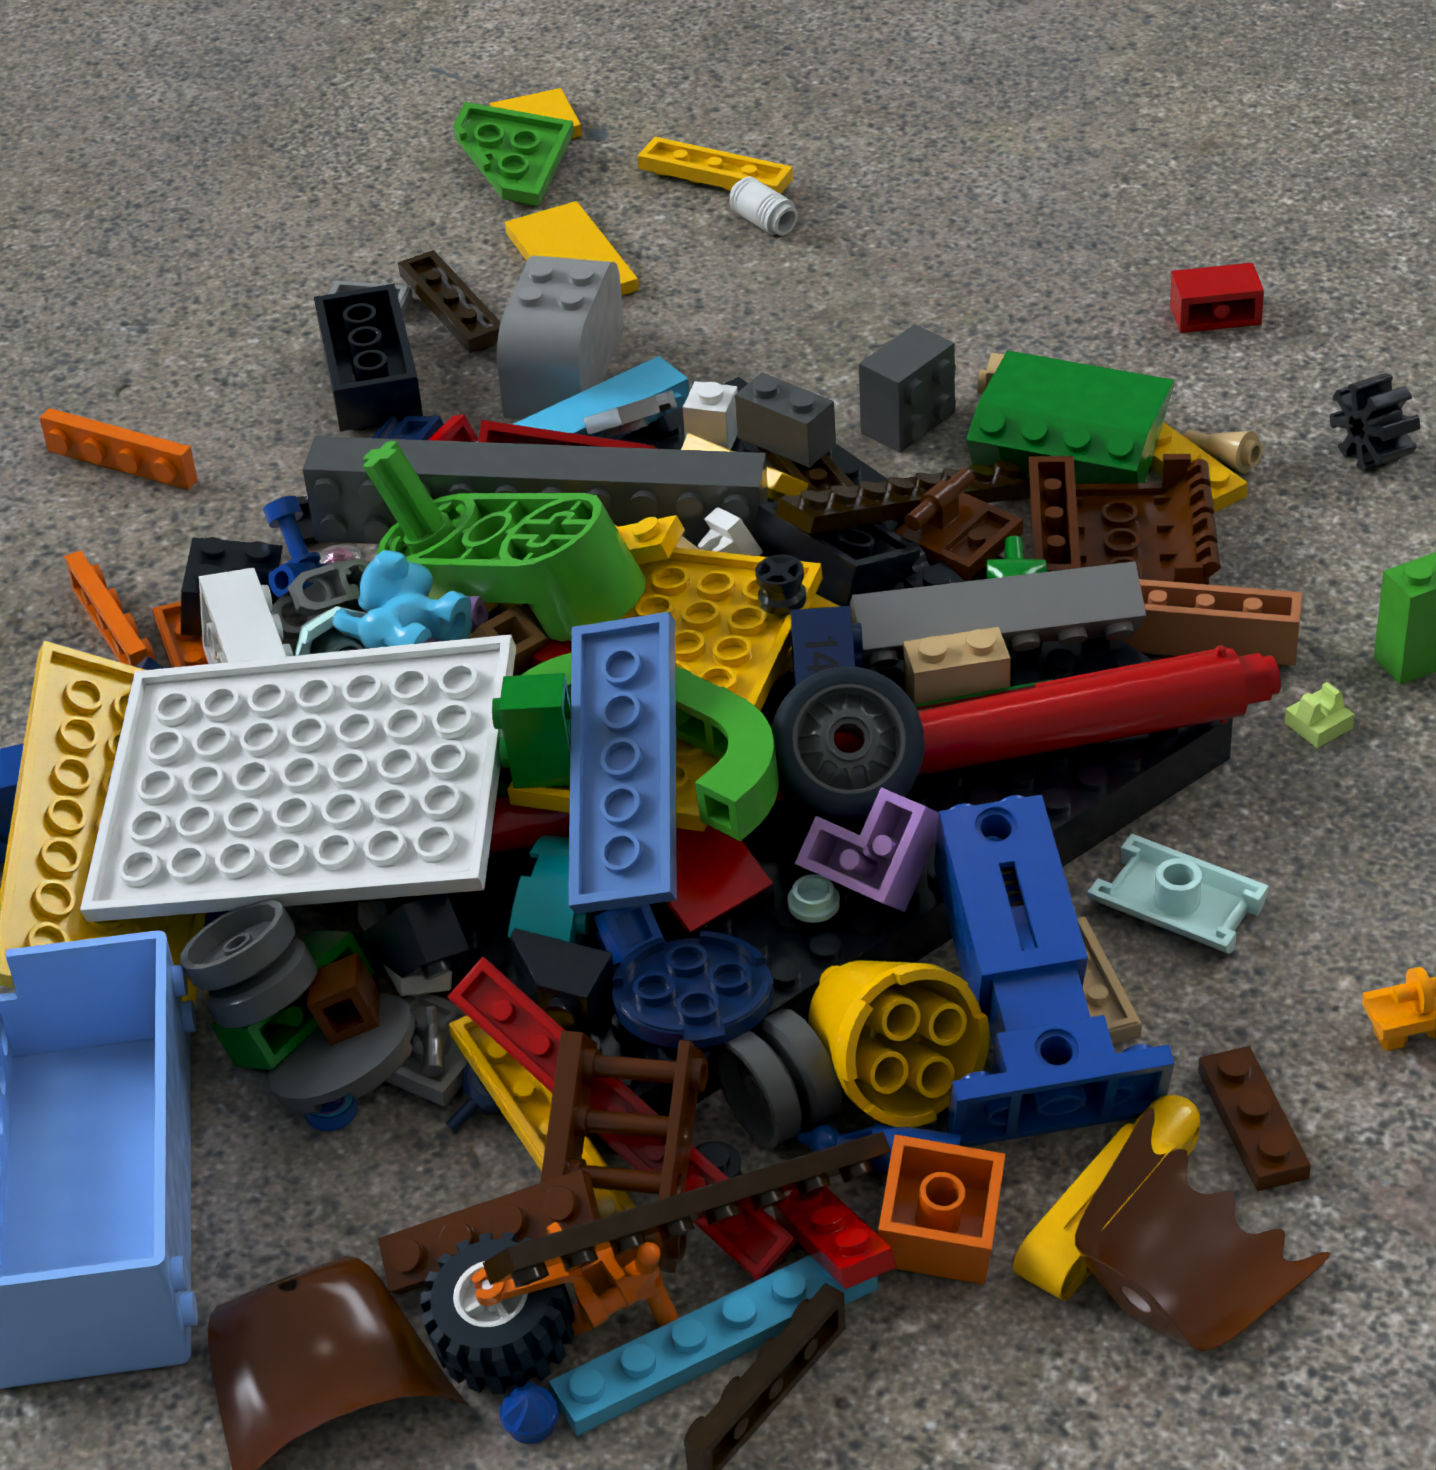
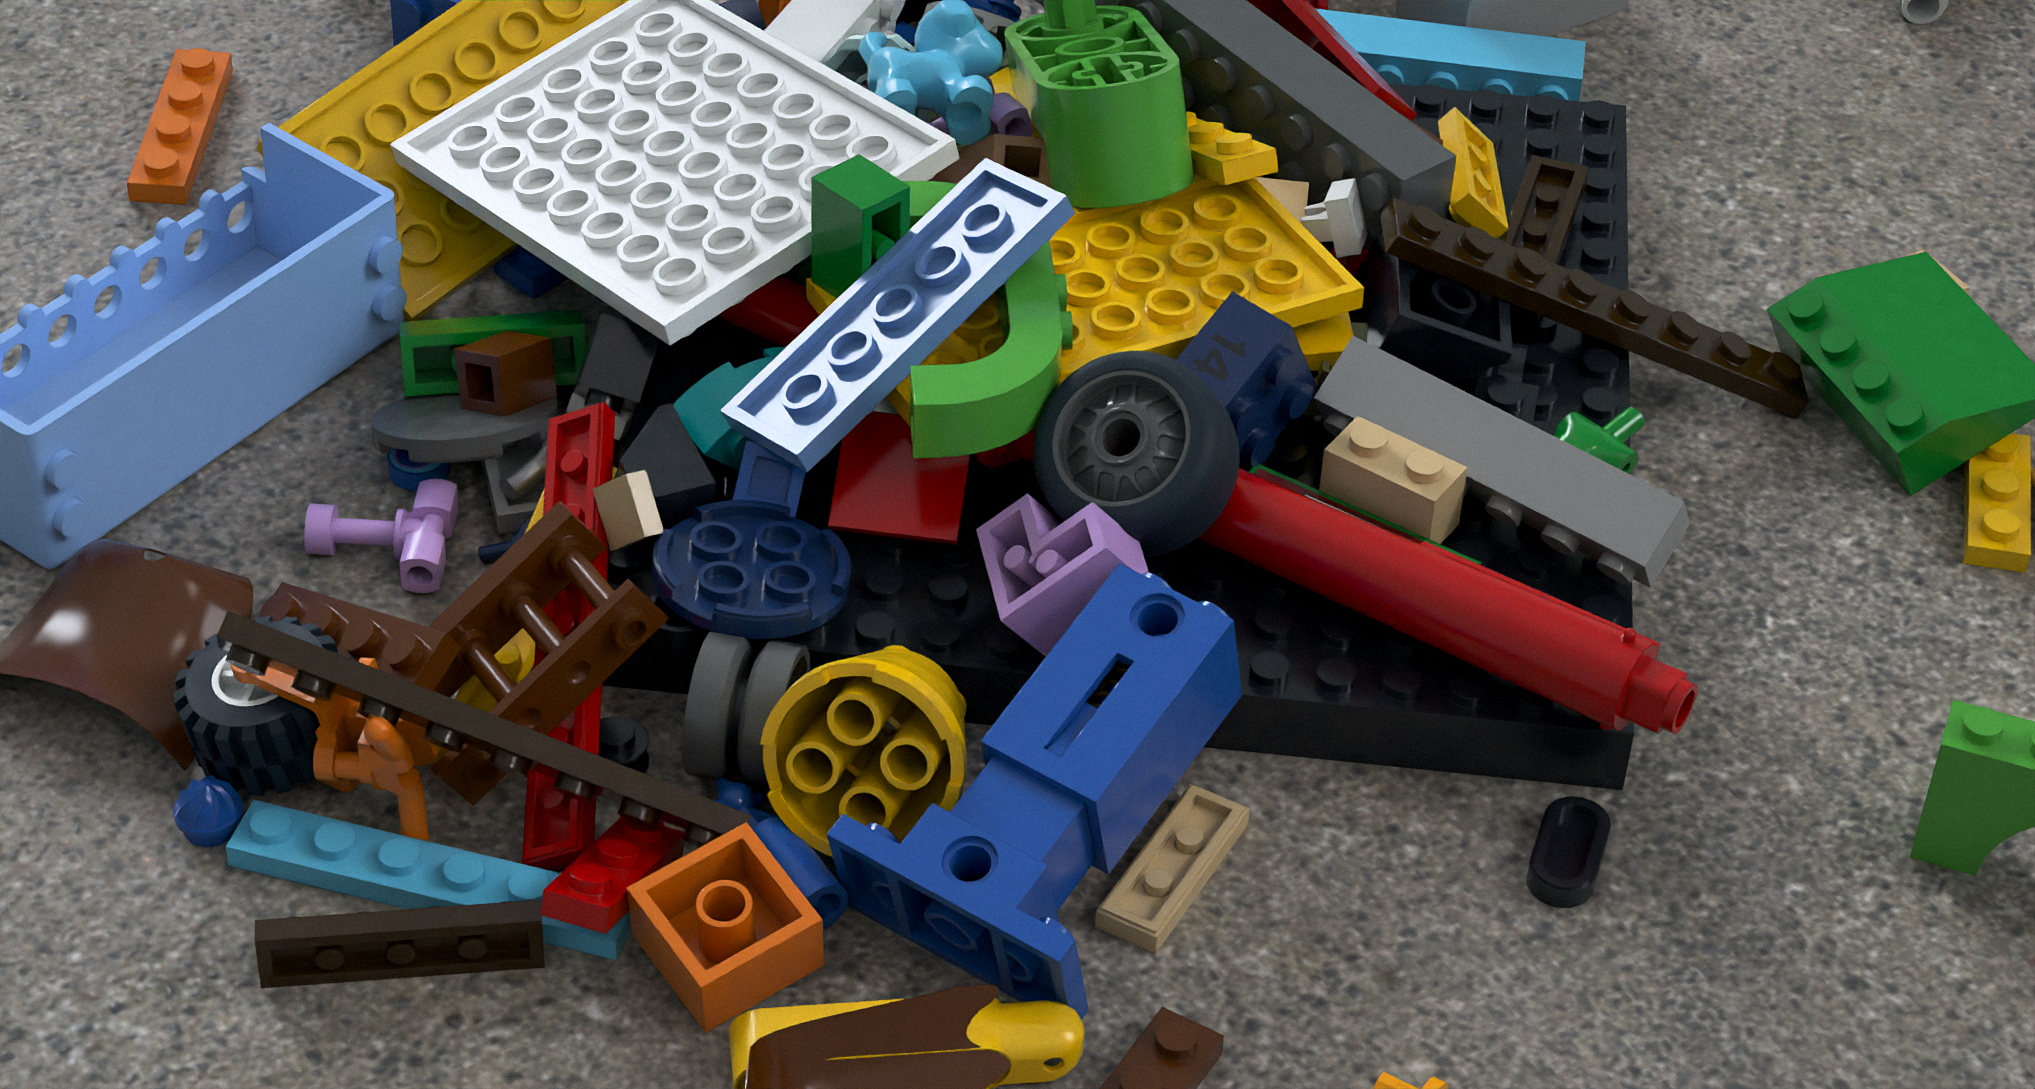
camera: 40 degrees right, 0 degrees up
(249, 964) = (452, 281): dark grey wheel -> none
(399, 1149) = (415, 535): none -> lavender bar
(586, 1008) = (628, 510): none -> tan tile
(629, 416) = (1448, 66): light grey plate -> none
(711, 413) = (1513, 111): white brick -> none
(780, 584) = (1280, 273): black wheel -> none
(785, 419) = (1555, 152): dark grey brick -> none
(813, 899) = (967, 582): light aqua plate -> none
(907, 388) = (1783, 223): dark grey brick -> none
(959, 526) = (1596, 362): reddish brown plate -> none
(1158, 525) = (1788, 502): reddish brown slope -> none
(1180, 893) = (1369, 862): light aqua piece -> none
(1196, 619) = (1764, 641): nougat brick -> none
(1257, 810) = (1568, 852): none -> black tile
(1320, 716) = (1765, 818): yellowish green tile -> none

